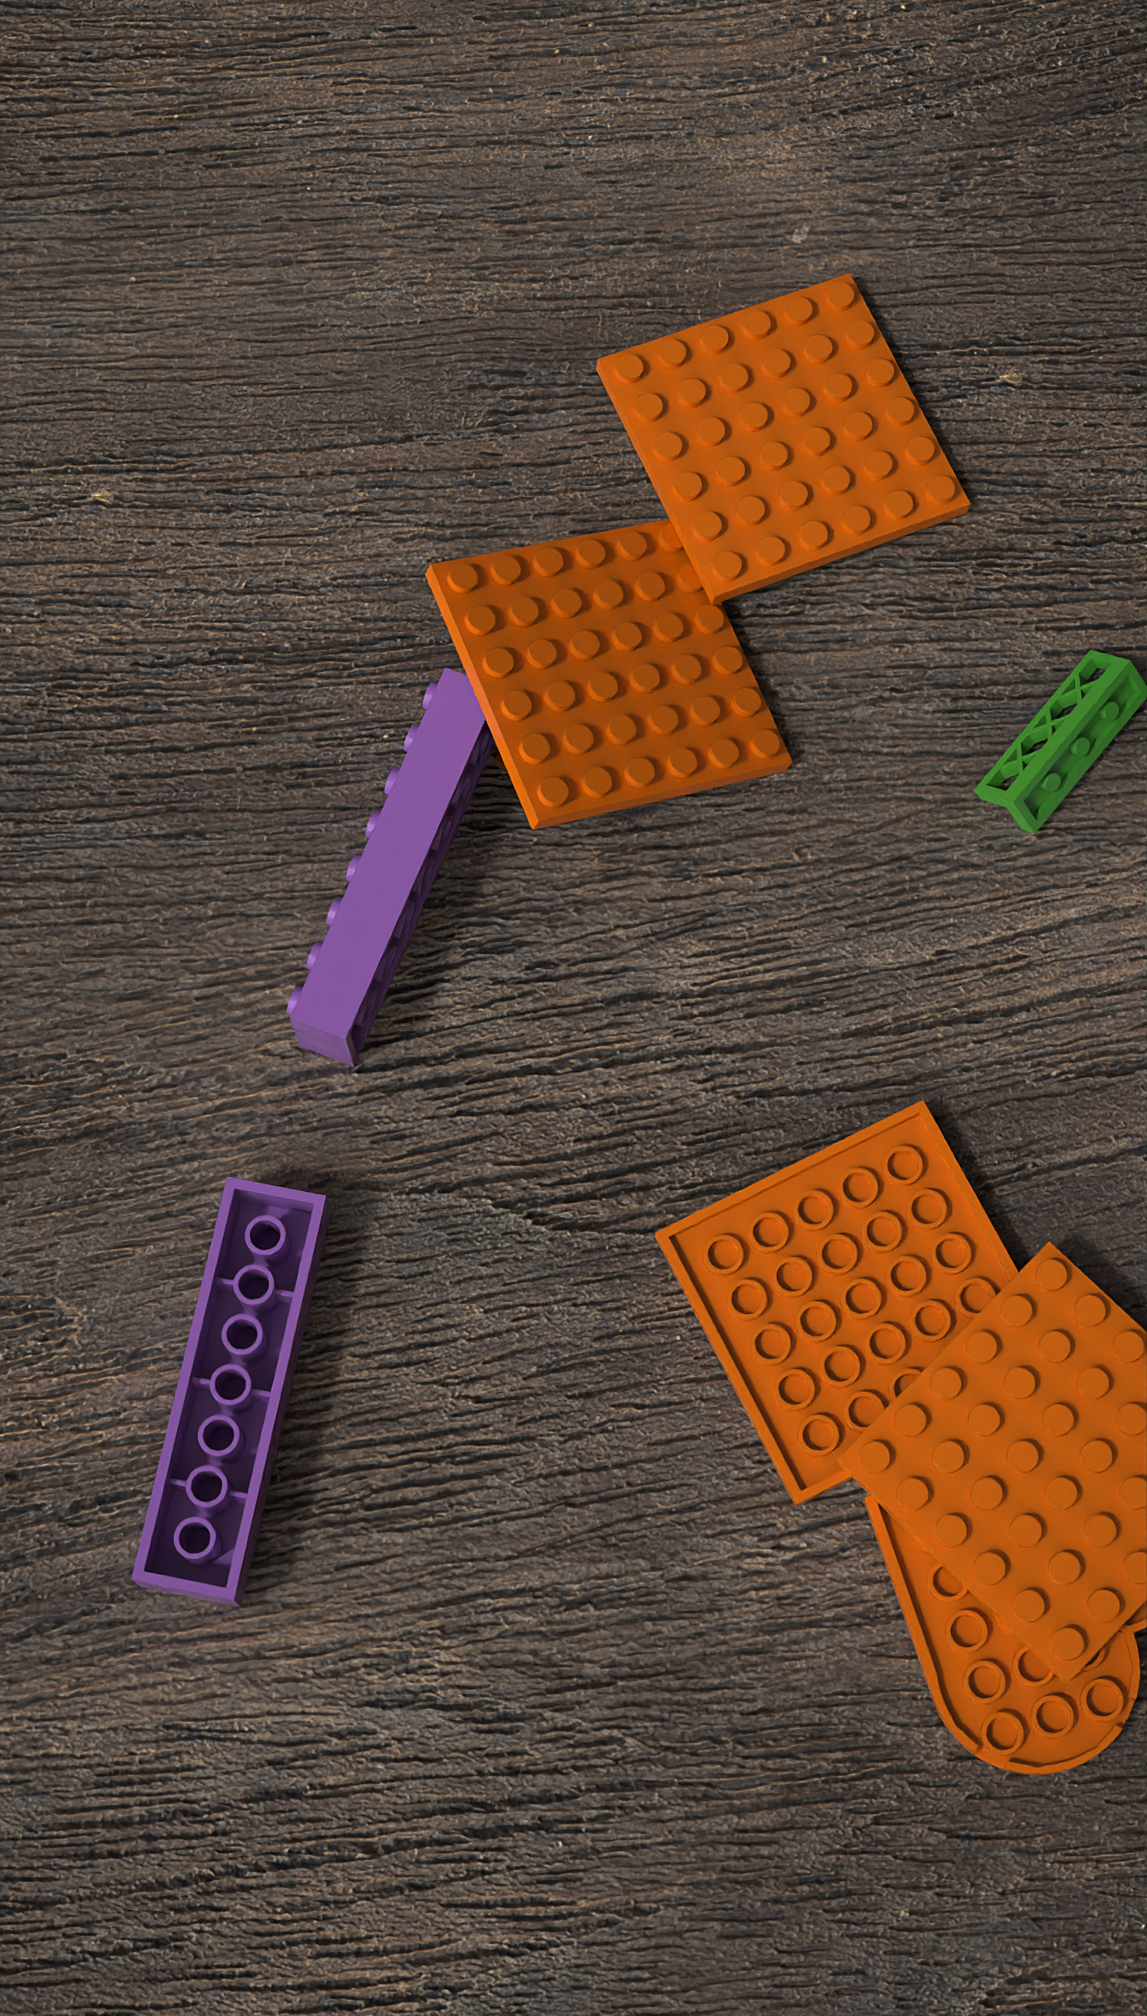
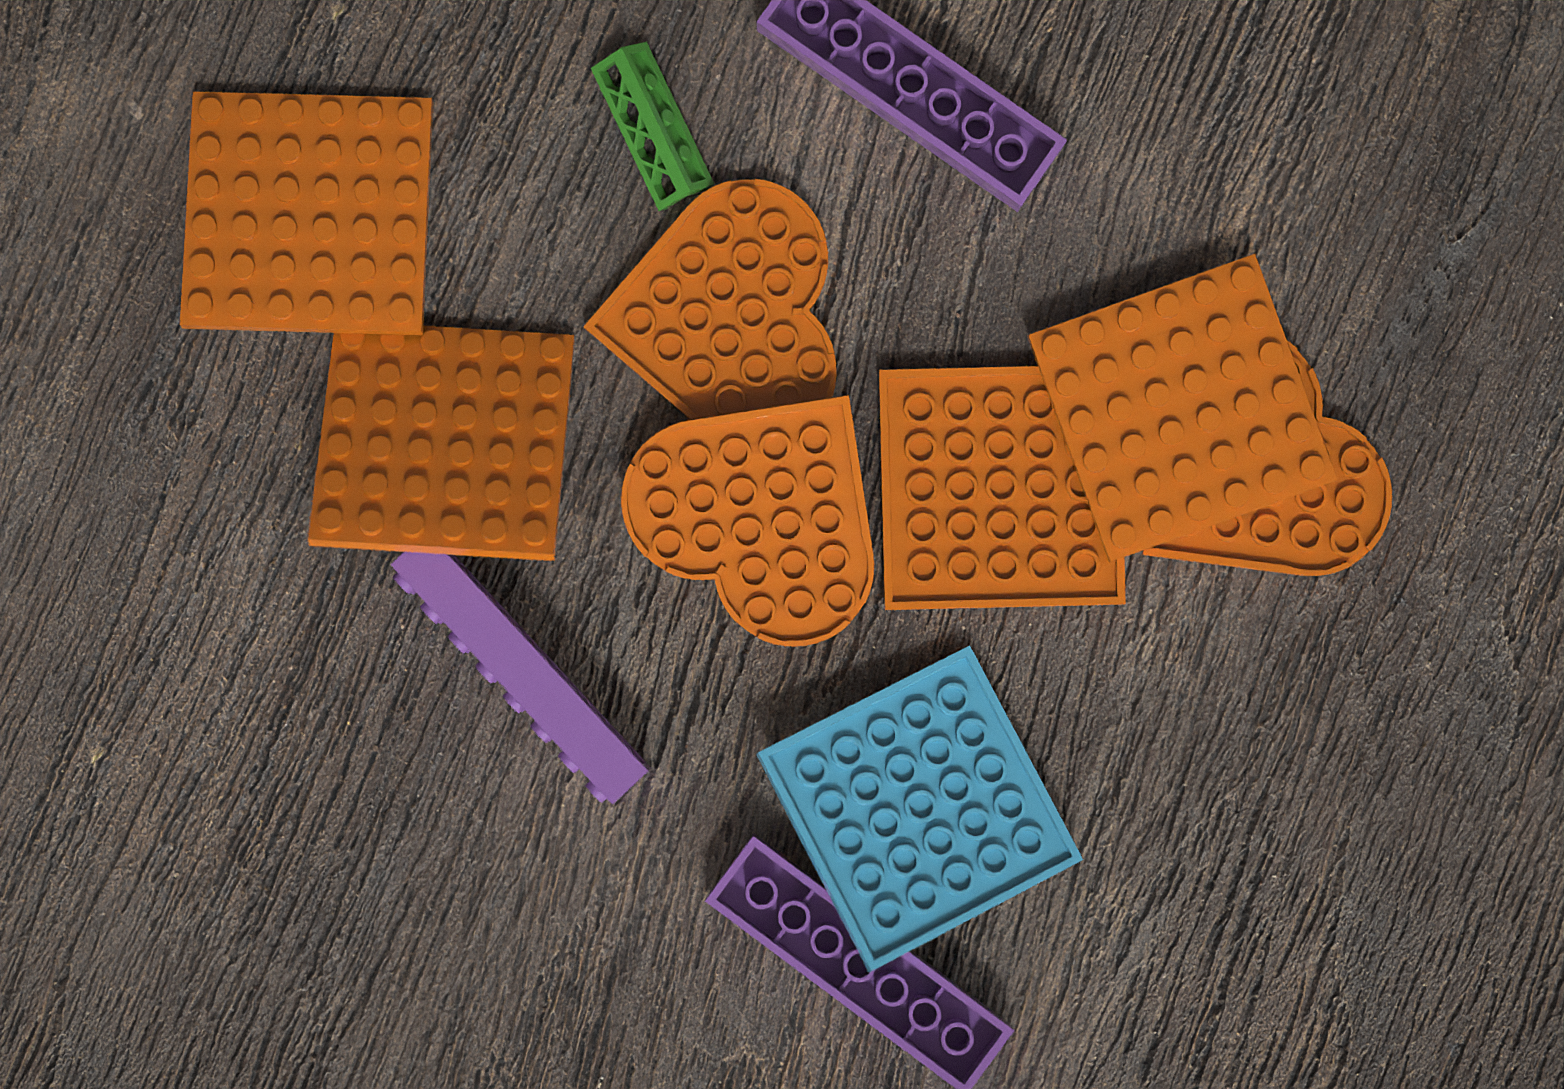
camera: 70 degrees left, 15 degrees up
(445, 1372) = (919, 808): none -> medium azure plate
(699, 1045) = (764, 510): none -> orange plate
(894, 911) = (726, 305): none -> orange plate

